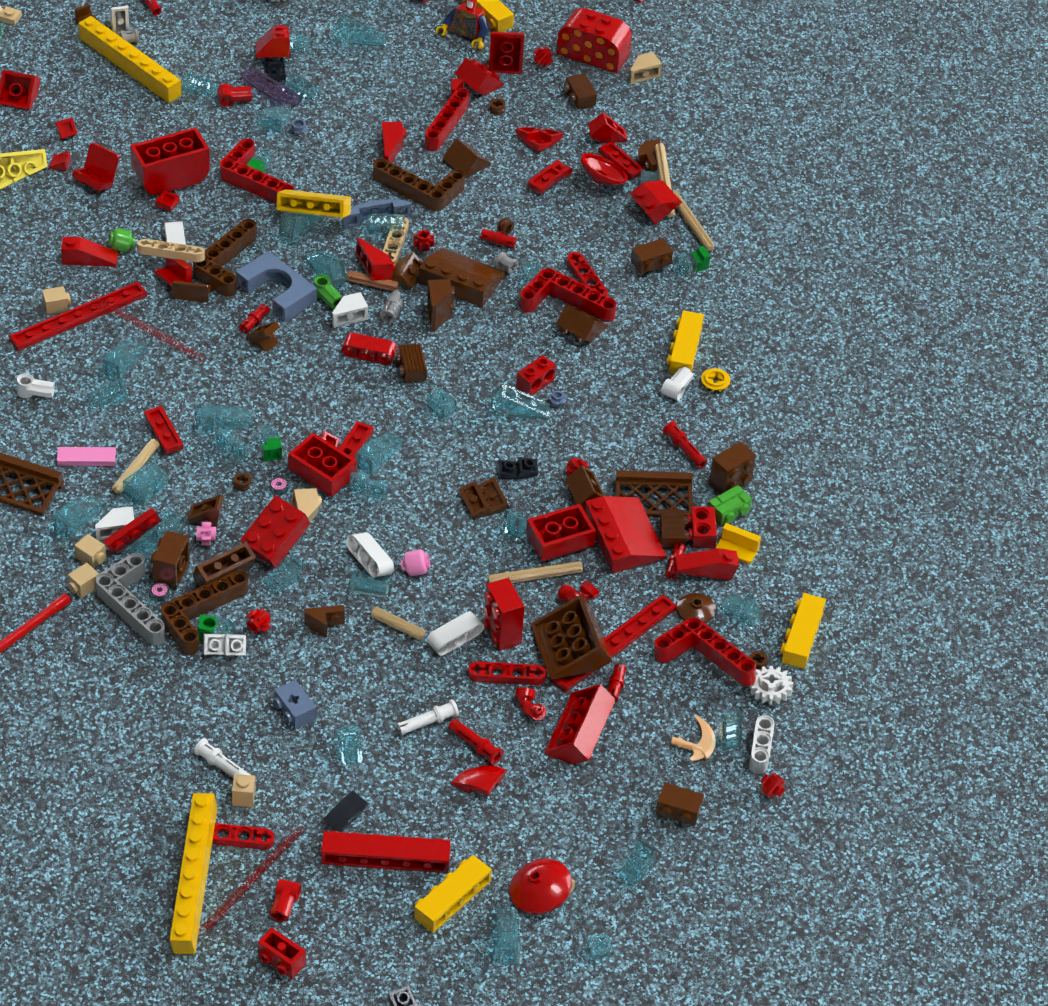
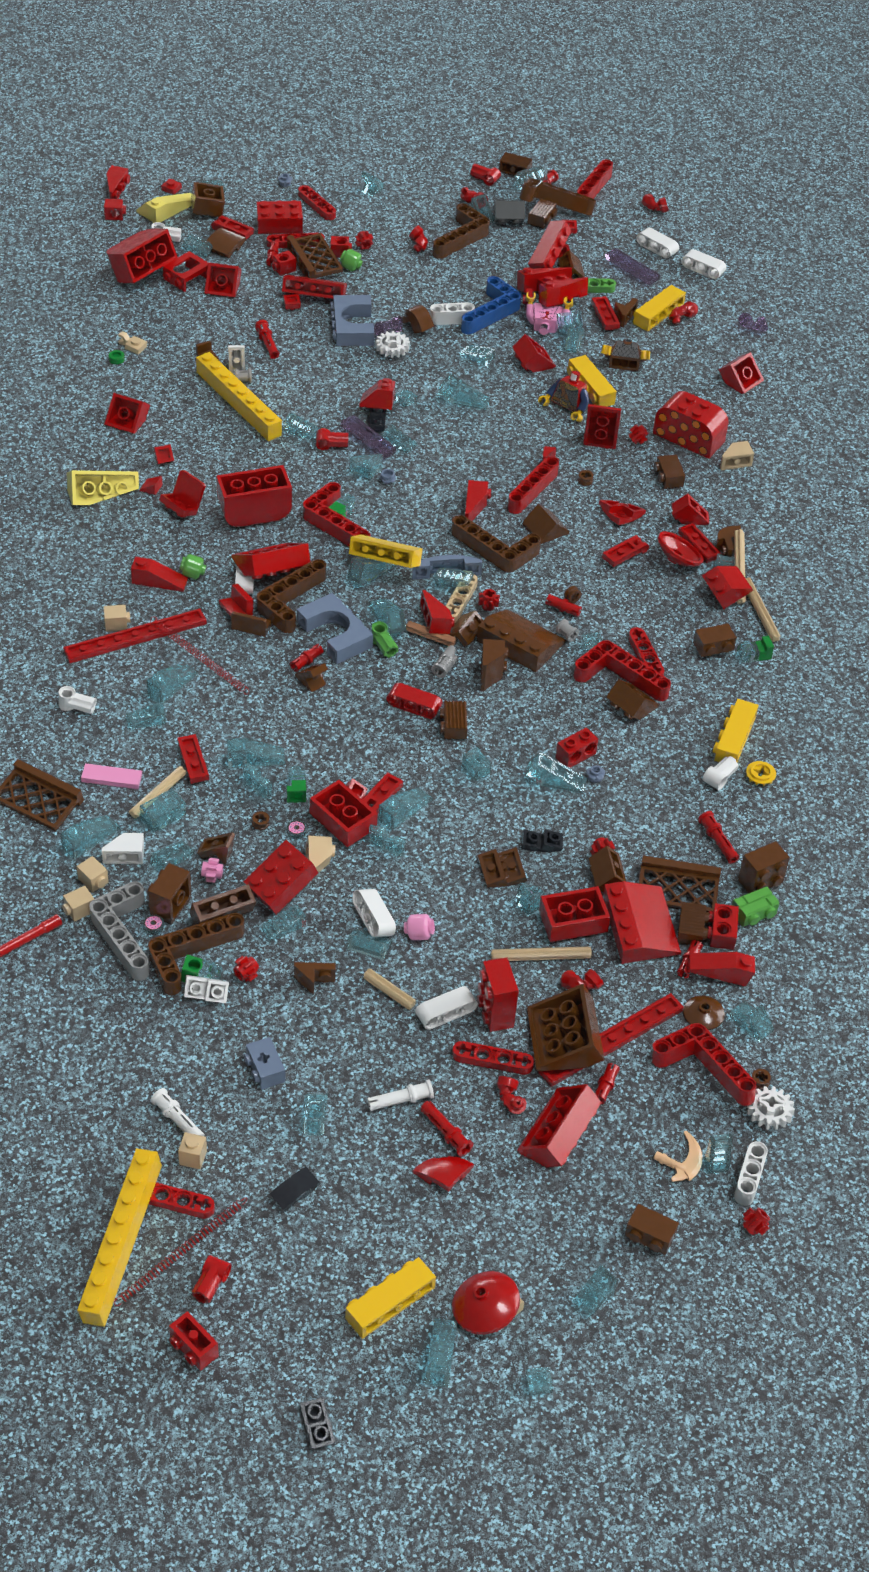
camera: 10 degrees right, 0 degrees up
(132, 531) = (138, 858): red plate -> none
(148, 542) = (149, 873): clear light blue slope -> none
(167, 200) = (246, 533): red plate -> none
(171, 250) = (237, 581): tan beam -> none
(201, 224) = (272, 559): none -> red slope
(350, 310) = (402, 660): white slope -> none
(385, 852) = (328, 1239): red brick -> none
(478, 76) = (572, 447): red slope -> none
(740, 540) = (762, 947): yellow panel -> none
(803, 630) = (814, 1052): yellow brick -> none

